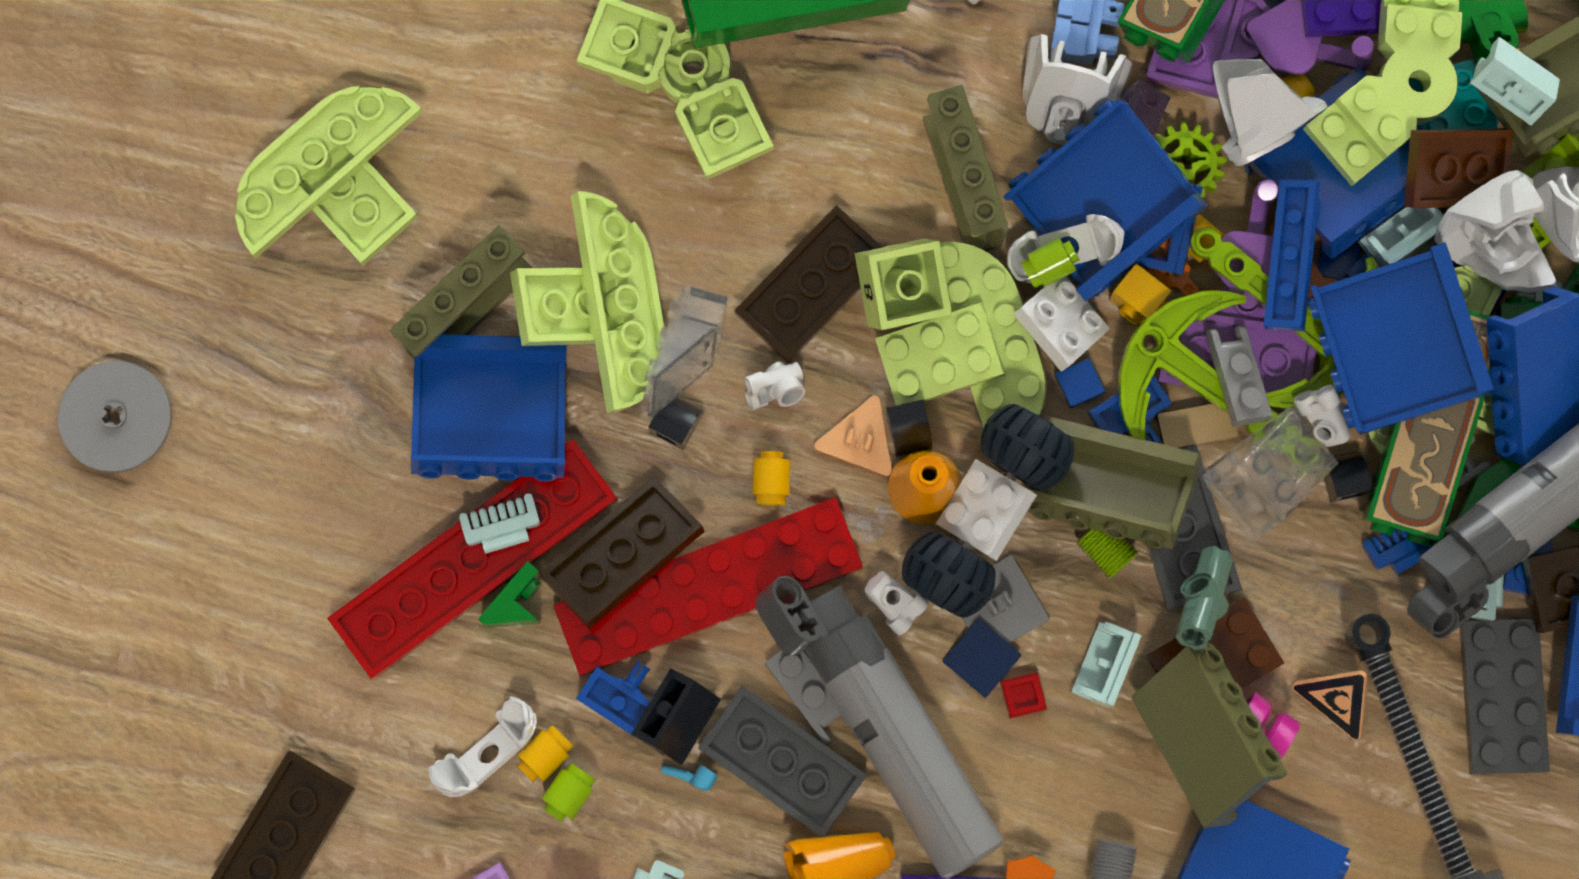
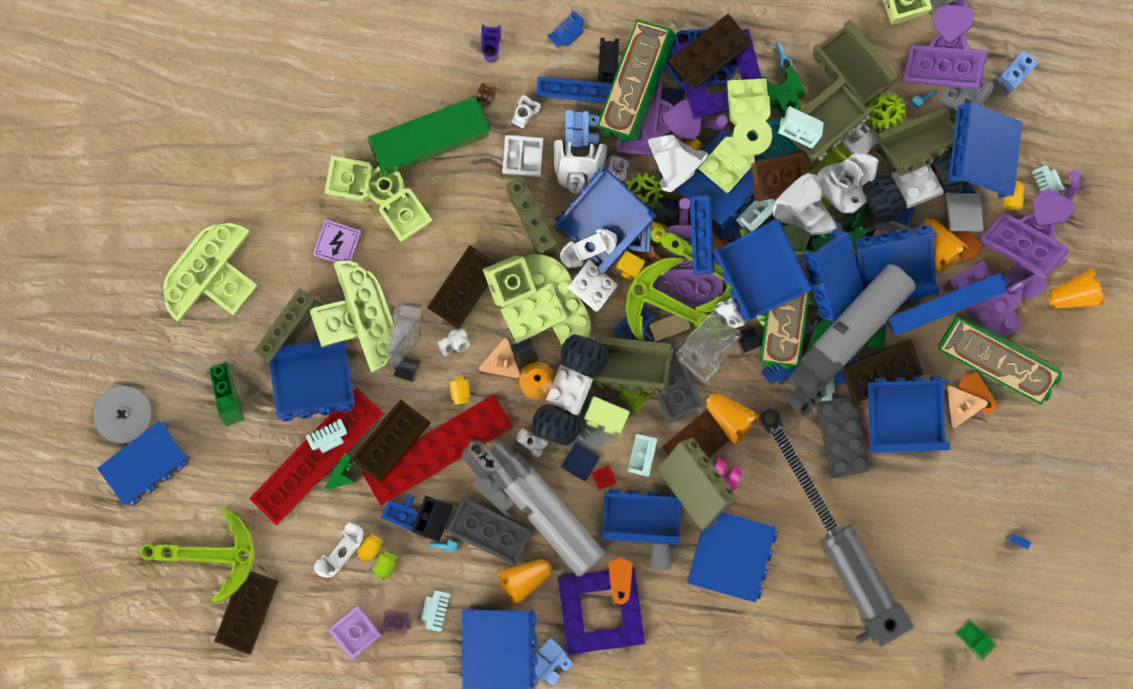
camera: 10 degrees left, 5 degrees up
(137, 517) = (143, 464): none -> blue panel
(253, 718) = (224, 555): none -> lime piece
(319, 411) = (225, 394): none -> green slope
(582, 159) = (336, 242): none -> lavender tile
(966, 55) = (522, 156): none -> white plate
(1048, 574) = (606, 416): none -> yellowish green brick
(1050, 263) = (582, 257): lime brick -> none
(1079, 383) = (607, 315): blue tile -> none
(1085, 784) = (641, 517): none -> blue panel
(1204, 598) = (684, 416): sand green piece -> none
(1227, 203) = (666, 211): none -> black brick
(1239, 378) = (686, 300): light grey hinge -> none
(1293, 618) = (731, 416): none -> light orange cone
(1338, 699) = (760, 452): black piece -> none

